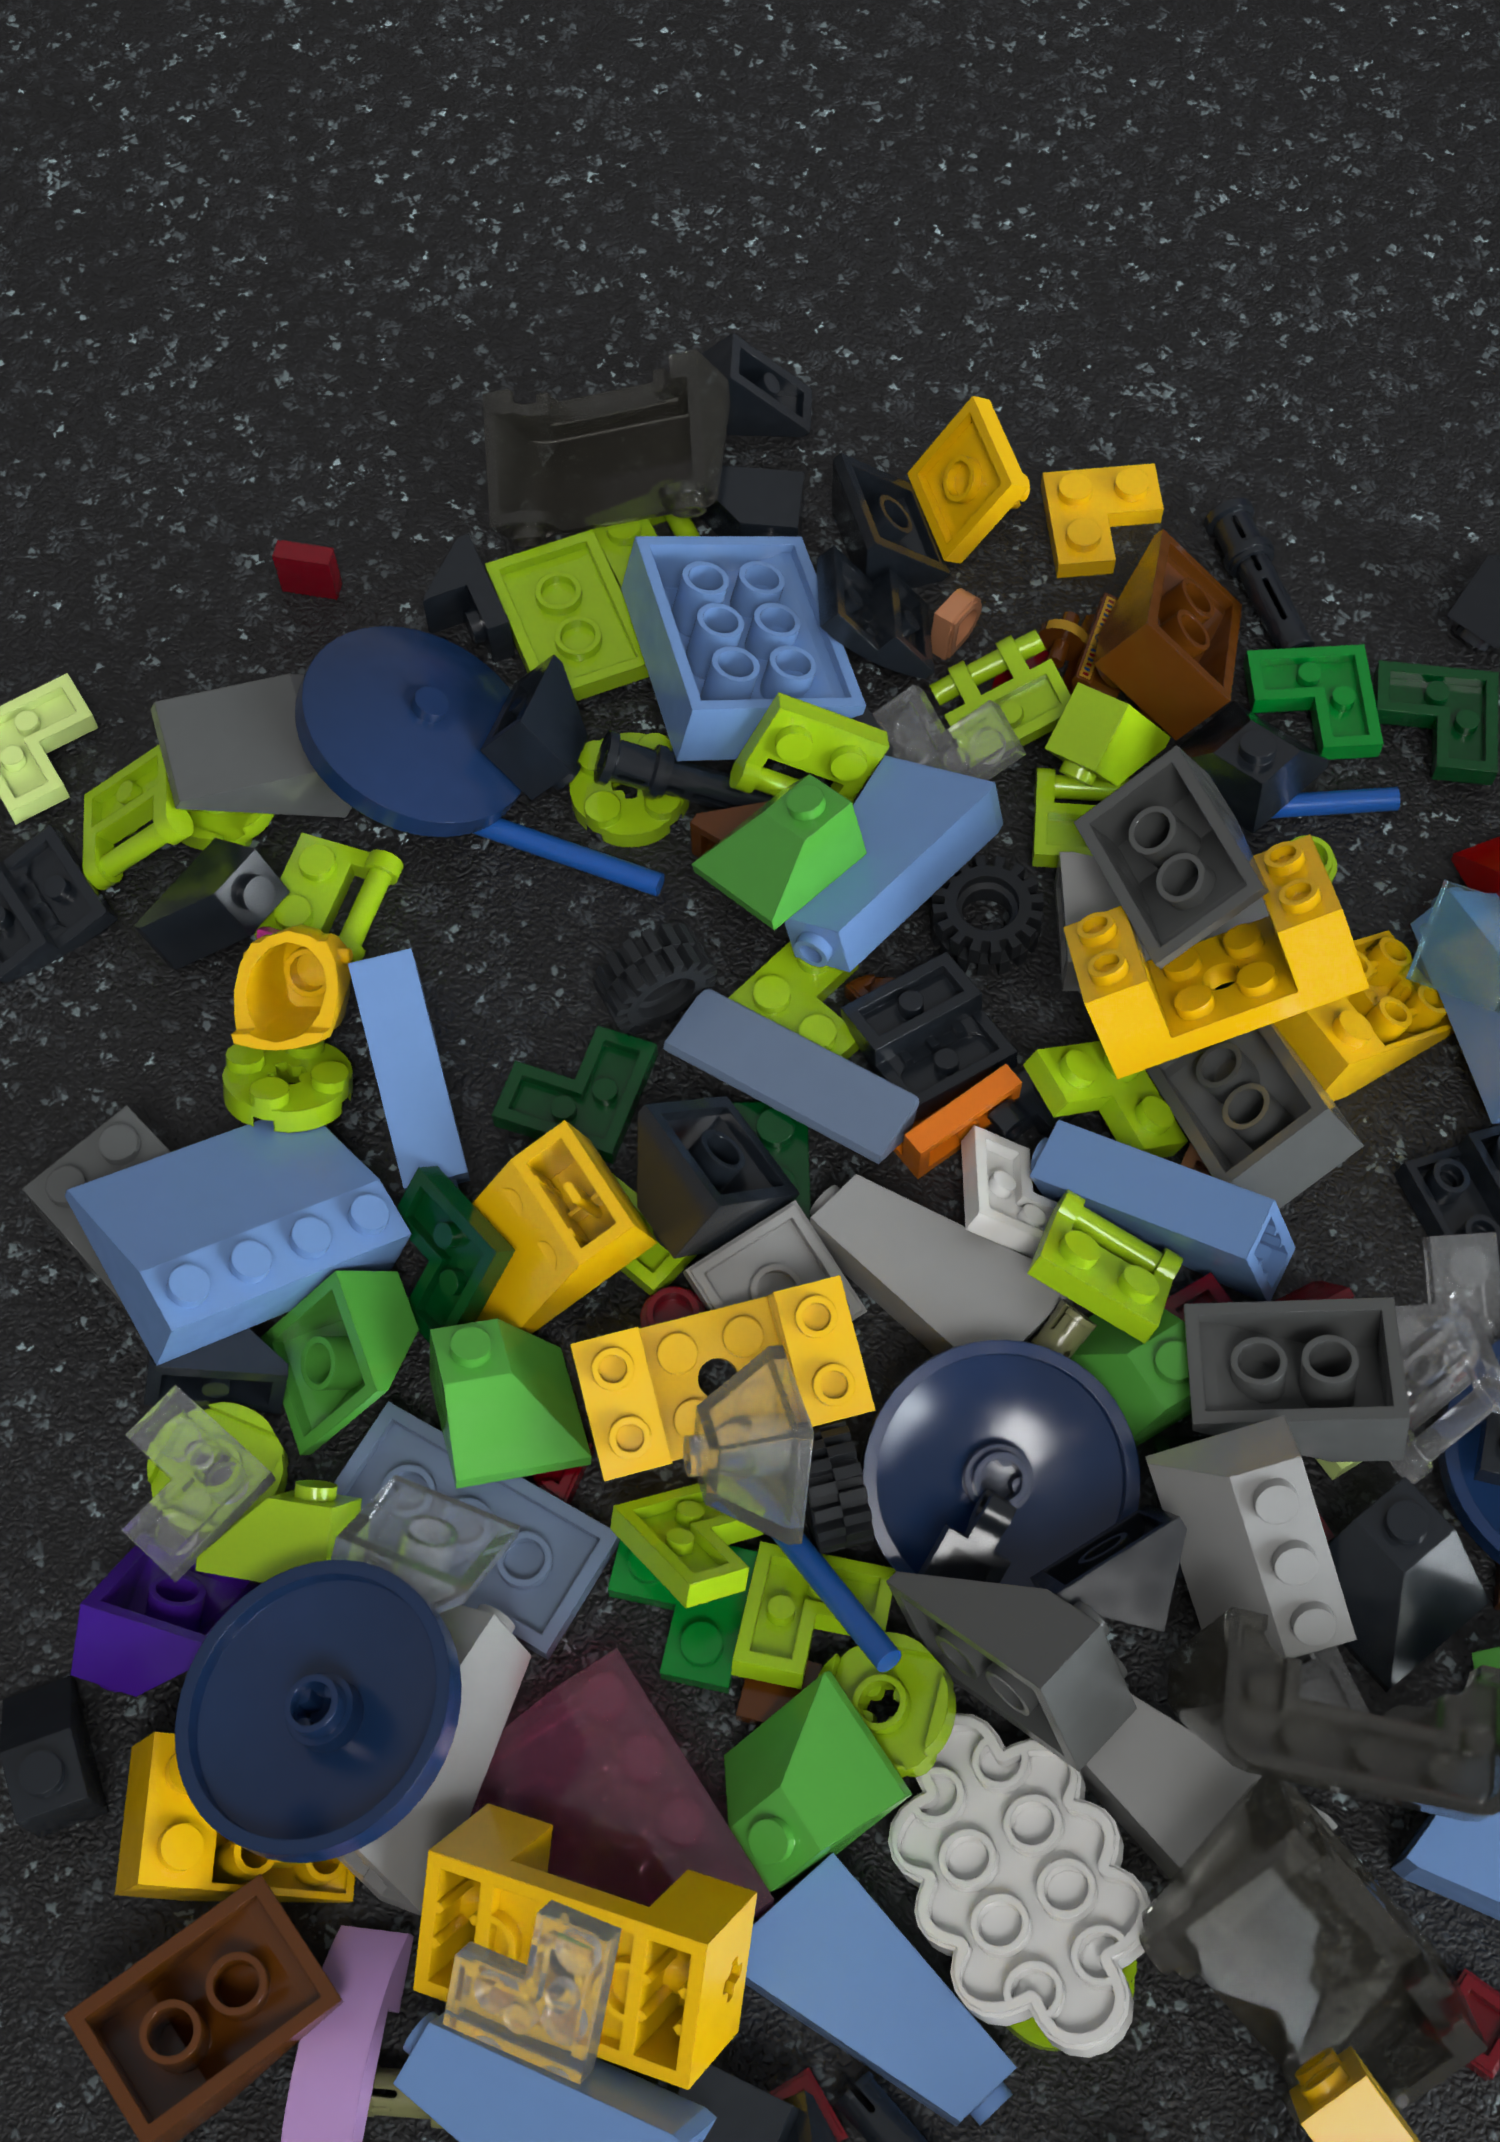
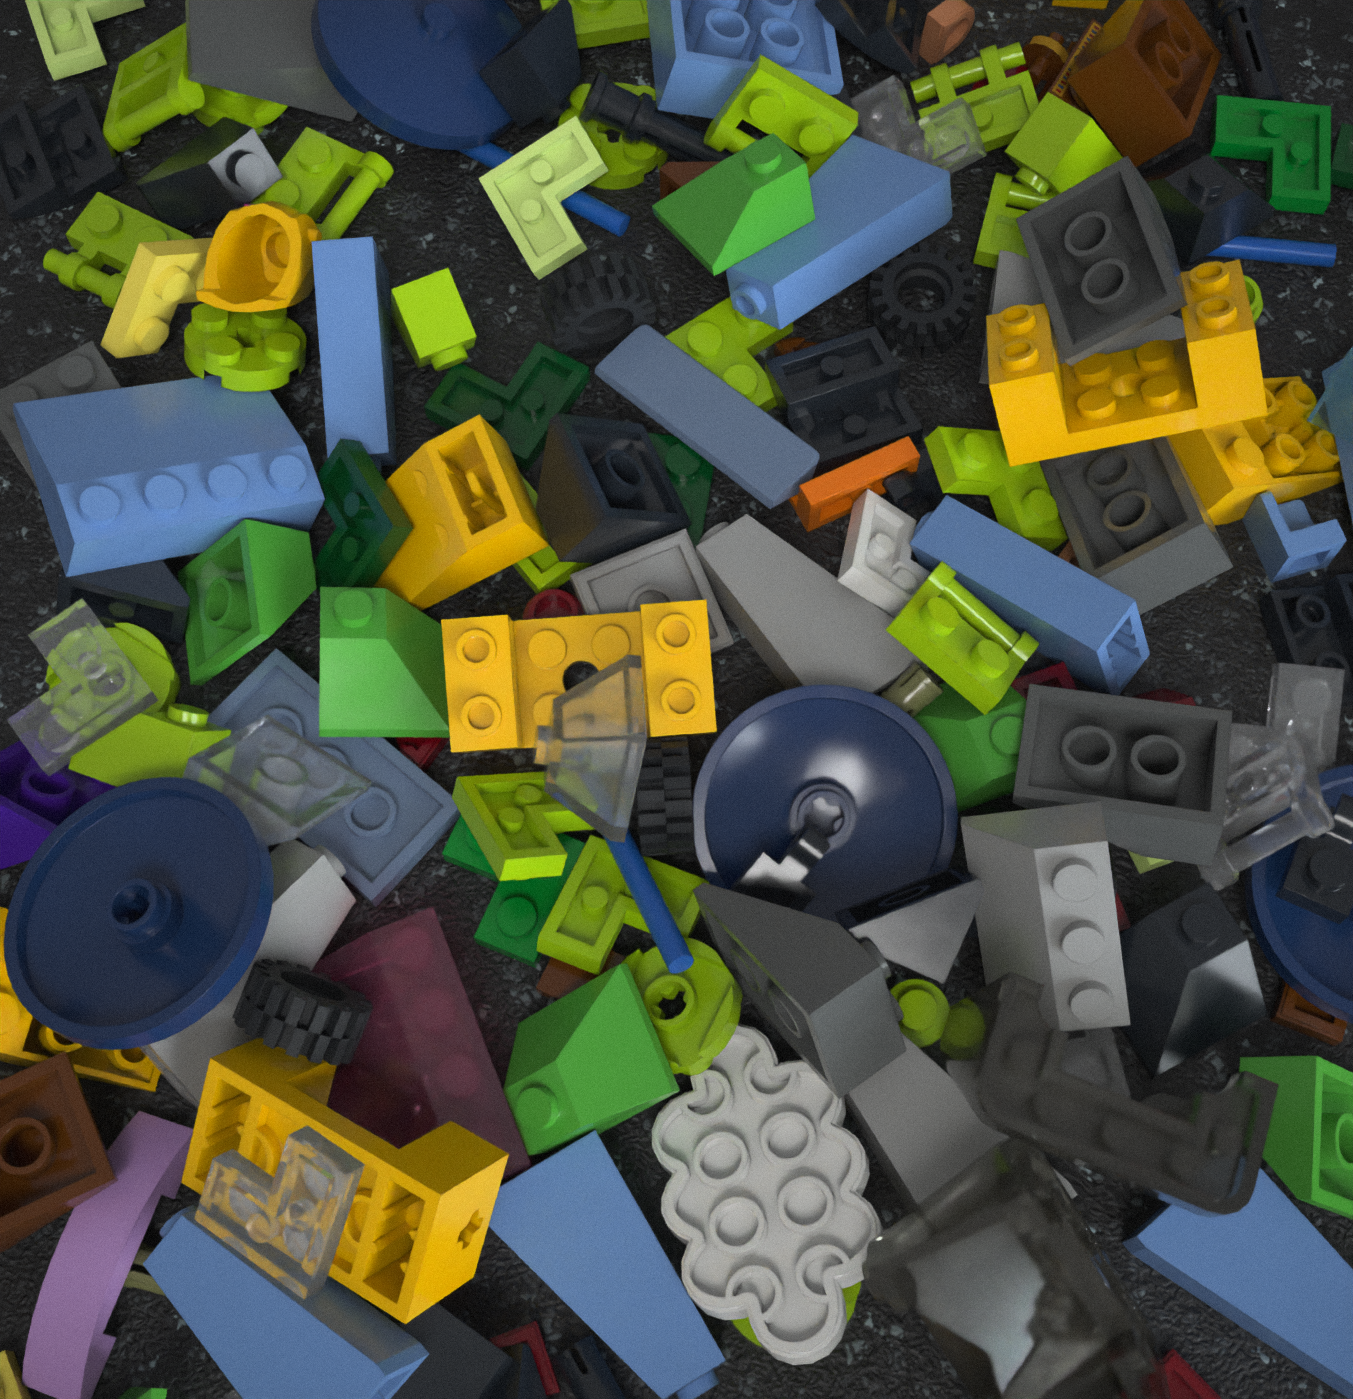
camera: 10 degrees right, 5 degrees up
(131, 987) = (105, 235): none -> lime plate
(186, 1027) = (155, 284): none -> light yellow plate
(486, 1024) = (433, 320): none -> lime slope
(508, 1784) = (302, 1012): none -> black tyre
(557, 864) = (530, 193): none -> yellowish green plate
(1145, 1664) = (923, 1010): none -> lime plate
(1412, 1103) = (1288, 538): none -> medium blue panel

